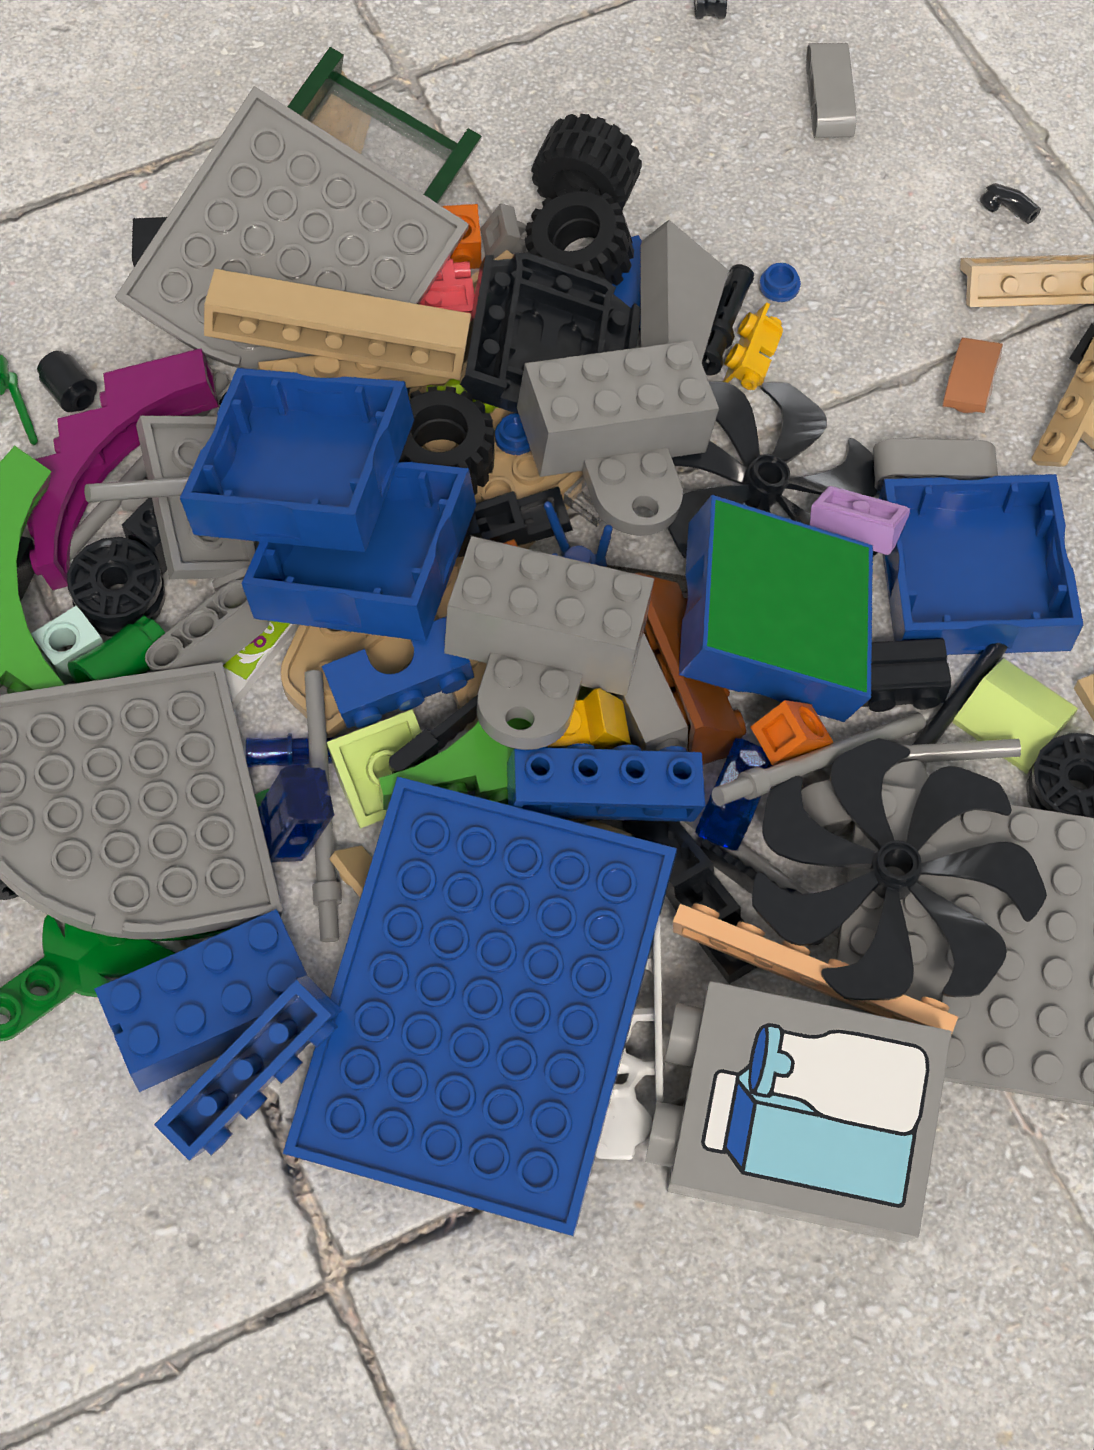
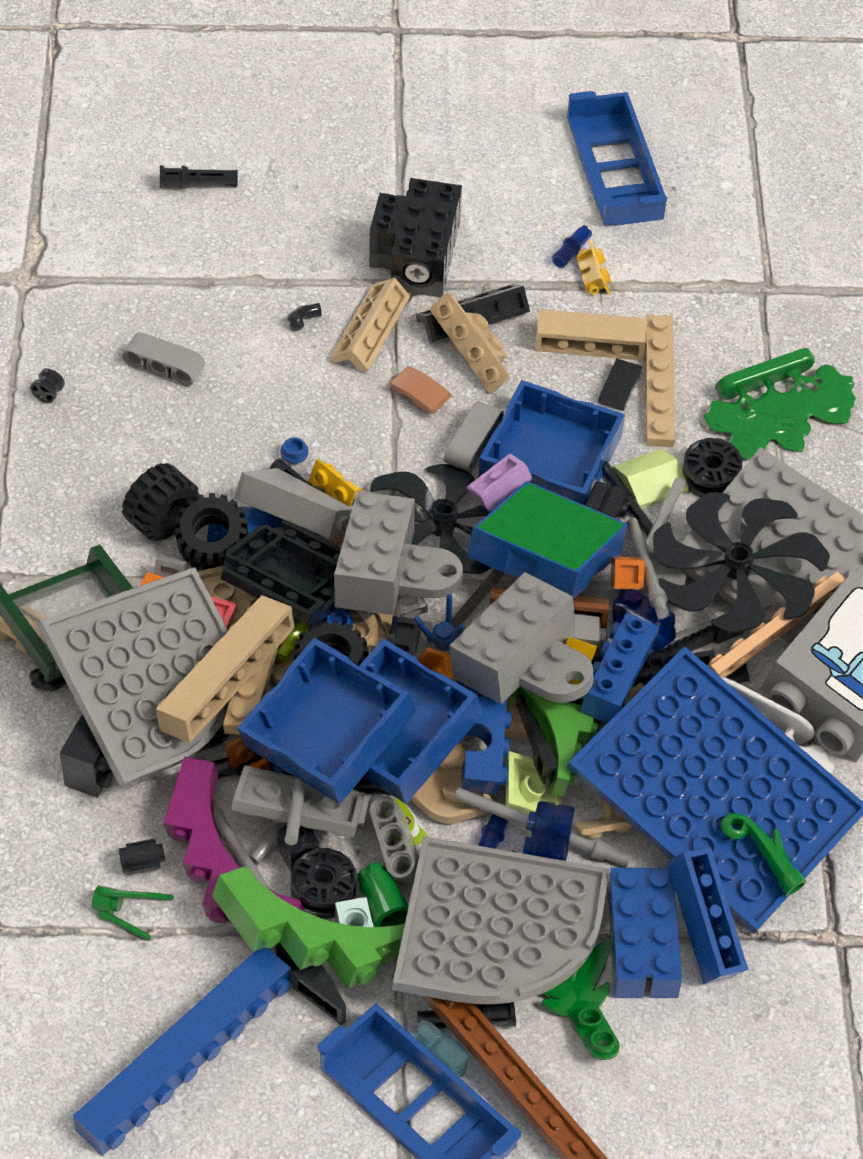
camera: 65 degrees left, 10 degrees down
(409, 1118) = (773, 851): none -> green plant

